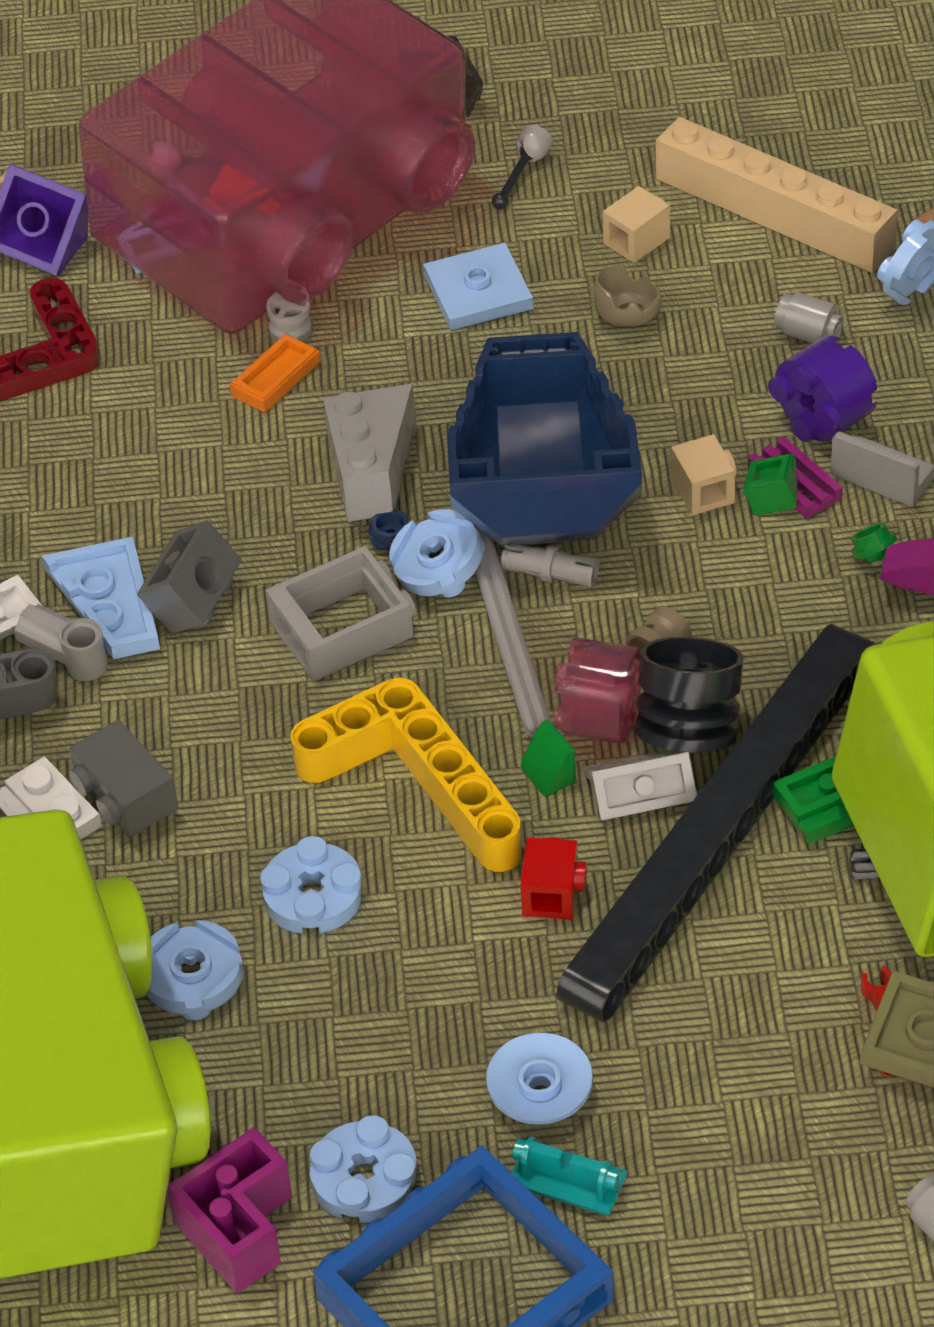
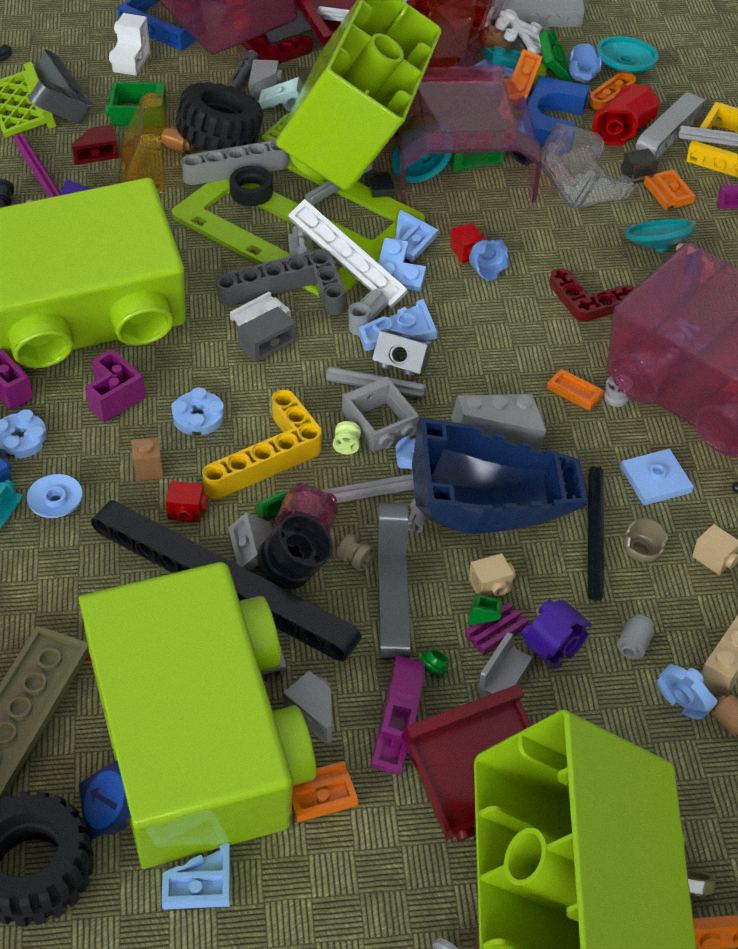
camera: 85 degrees right, 0 degrees up
(199, 991) = (160, 358): light blue plate -> none
(245, 632) = (361, 379): none -> light grey axle
(253, 996) = (114, 386): none -> magenta brick
(394, 658) = (346, 437): none -> yellowish green wheel
(448, 940) = (147, 459): none -> medium nougat brick
(640, 360) = (595, 533): none -> black axle
(737, 589) = (393, 580): none -> dark grey beam

